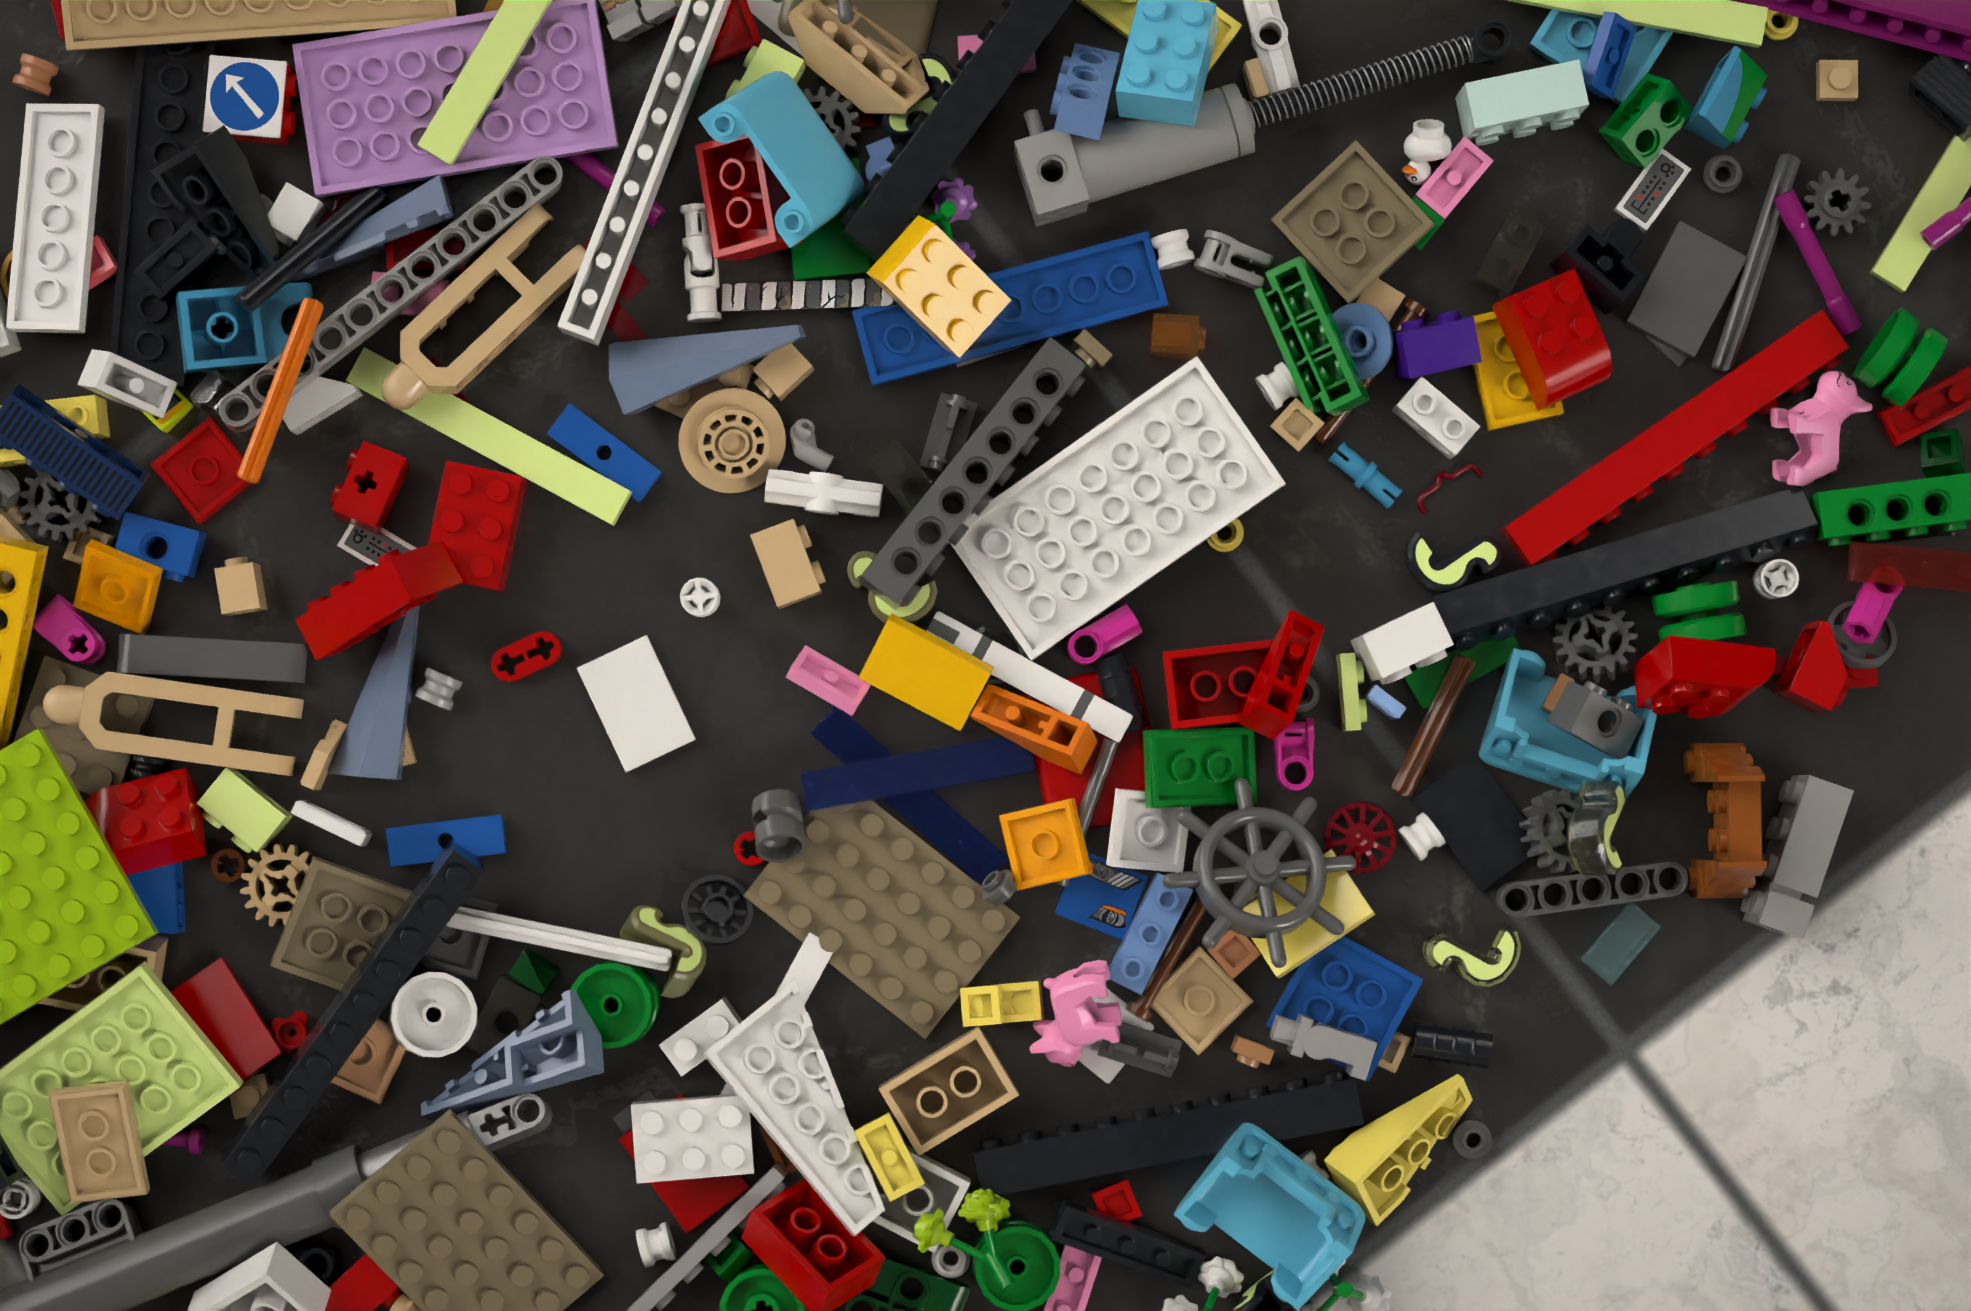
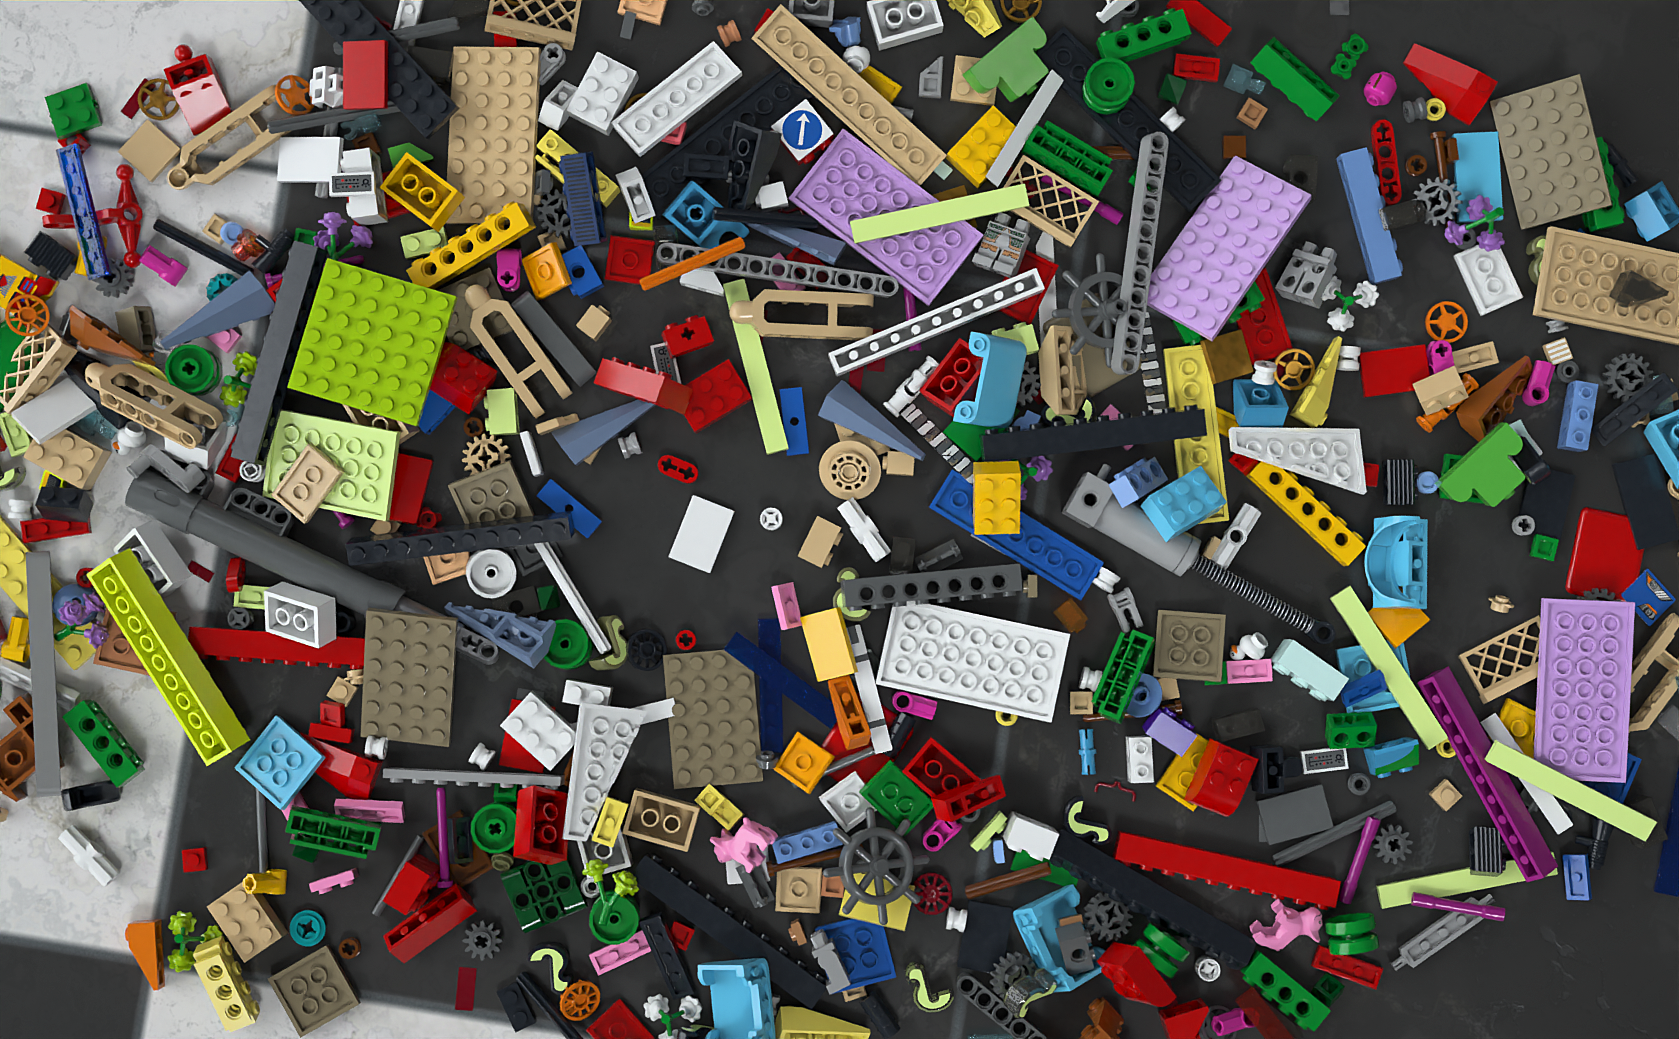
camera: 50 degrees right, 0 degrees up
(778, 825) = (705, 643): dark grey wheel -> none
(805, 445) = (876, 503): light grey arm -> none
(1103, 898) = (804, 808): blue sticker -> none

